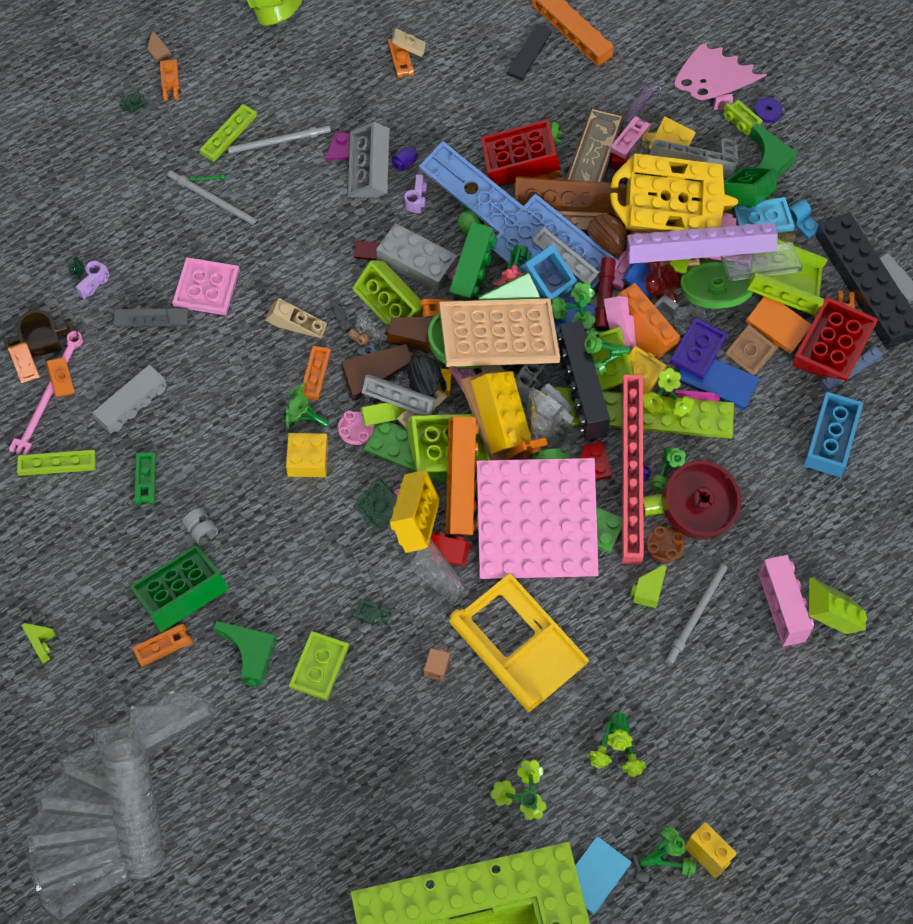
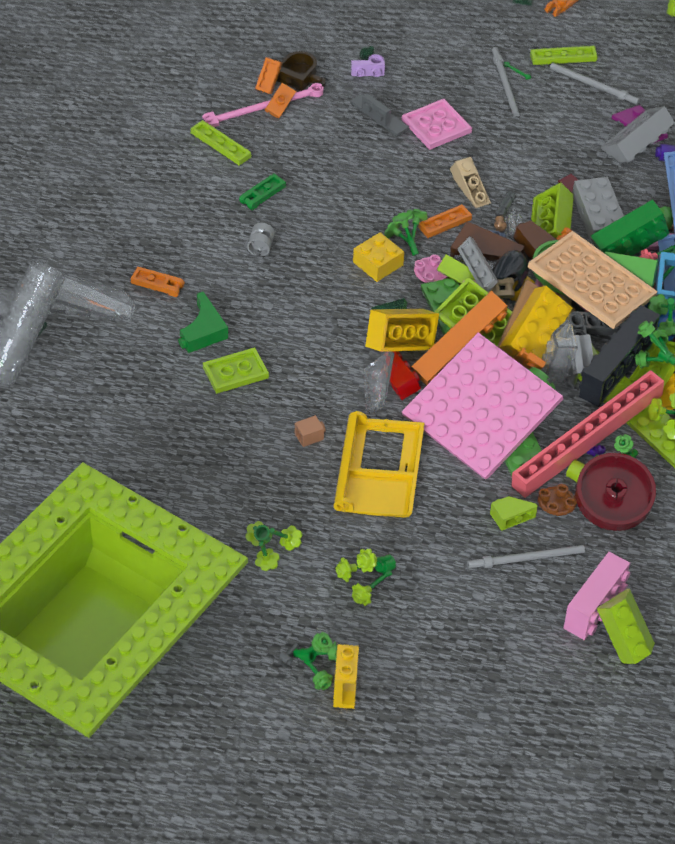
camera: 45 degrees right, 15 degrees down
(37, 637) = (91, 217): lime slope -> none
(130, 399) = (307, 144): light grey brick -> none
(179, 588) = (205, 262): green slope -> none
(369, 612) = (305, 369): clear green plate -> none
(416, 195) = (645, 179): lavender plate -> none
(597, 451) = (568, 415): red wing -> none
(599, 872) = (256, 630): medium azure tile -> none

